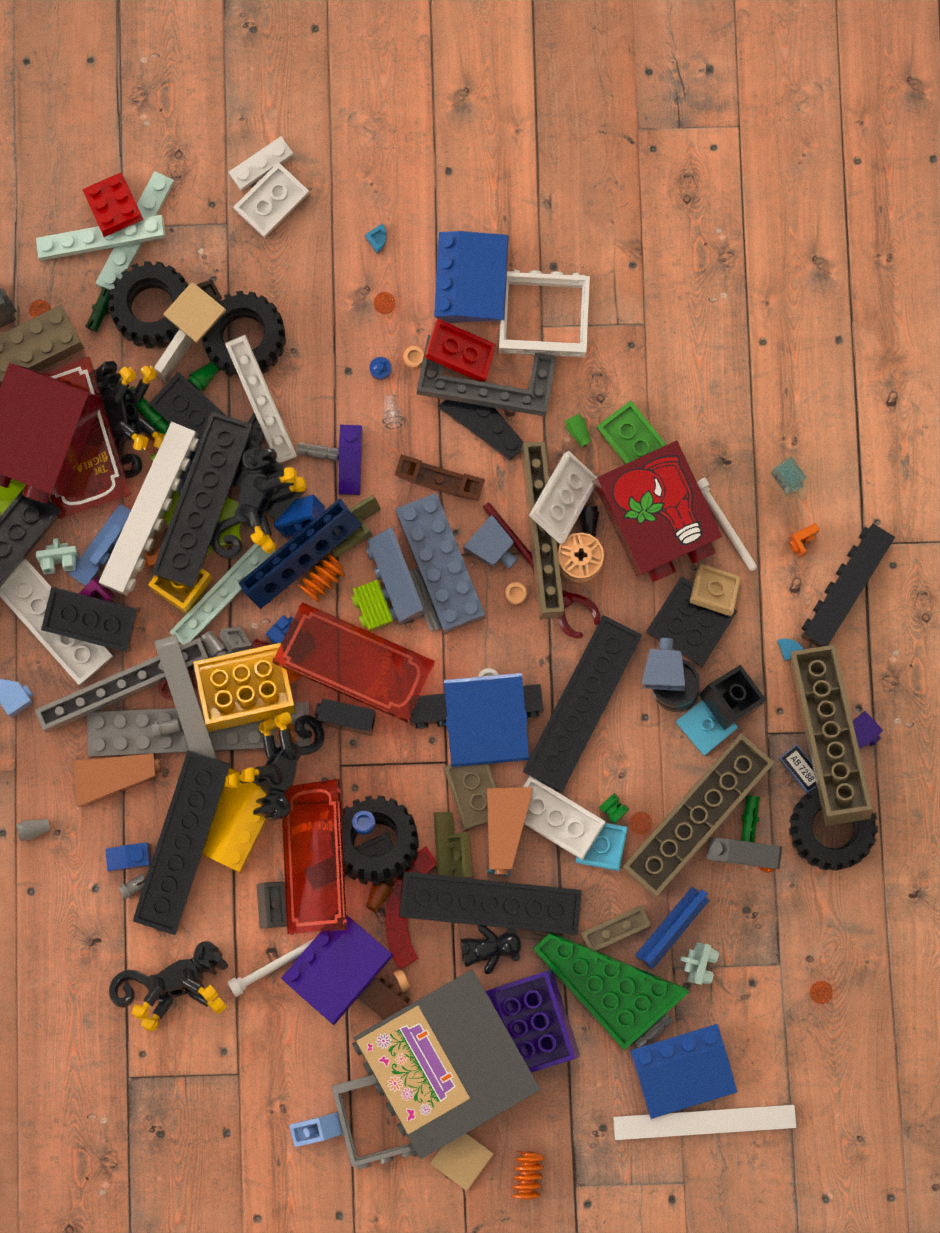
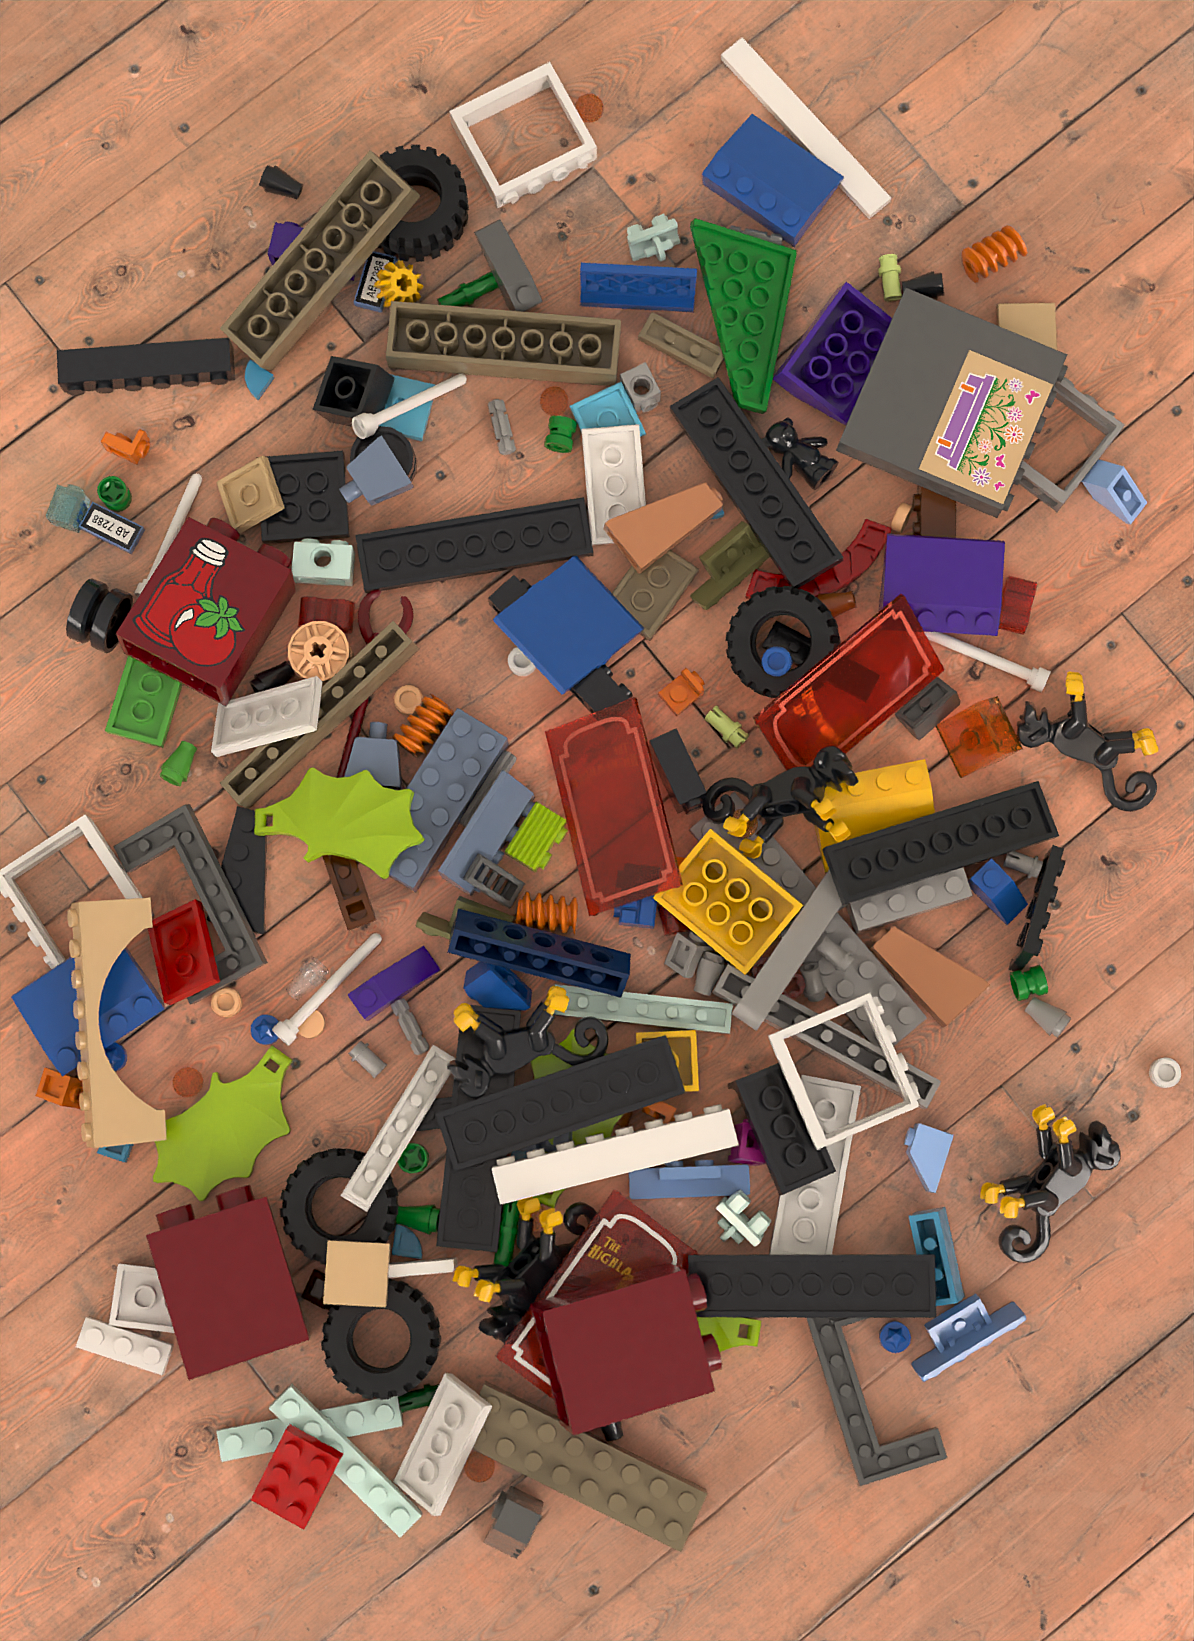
camera: 125 degrees left, 0 degrees up
(61, 832) = (1028, 982): none -> green wheel
(64, 632) = (895, 1061): none -> white window
(66, 295) = (442, 1444): none -> white tile
(92, 867) = (1037, 910): none -> black wing
(157, 702) = (813, 983): none -> light grey pin
(160, 799) = (909, 900): none -> light grey brick
(194, 359) = (406, 1243): none -> dark azure tile
(229, 920) = (979, 736): none -> clear orange slope
(238, 393) = (410, 1161): none -> green wheel
(248, 240) = (226, 1283): none -> dark red brick
(292, 1008) = (1016, 604): none -> clear red axle
(317, 413) = (367, 1059): none -> light grey pin
(341, 303) = (225, 1129): none -> lime animal
(350, 560) = (510, 890): none -> dark grey slope
(353, 771) = (729, 729): none -> yellowish green pin
(364, 395) = (312, 1026): none -> light nougat tile
(369, 379) = (289, 1028): none -> white piece
(395, 761) = (682, 691): none -> orange bracket
(429, 228) = (60, 1089): none -> orange bracket
(429, 269) = (116, 1055): none -> blue tile
(466, 499) = (345, 819): none -> lime animal
(490, 590) = (423, 725): none -> orange piece
(501, 307) = (111, 1110): none -> tan arch
(539, 1115) = (928, 284): none -> black cone
(566, 1099) = (890, 271): none -> yellowish green pin
(605, 581) = (334, 611): none -> clear red axle
(616, 879) = (637, 377): none -> light grey brick
(643, 590) = (337, 572): none -> light aqua brick
(646, 776) = (501, 427): none -> light grey axle
(701, 685) = (366, 424): none -> white piece
(703, 444) = (98, 615): none -> black wheel
(758, 493) = (111, 528): none -> tile
(780, 506) = (111, 488): none -> green wheel
(793, 778) = (406, 279): none -> yellow gear
(866, 939) = (507, 96): none -> white window
(911, 755) = (280, 183): none -> black cone

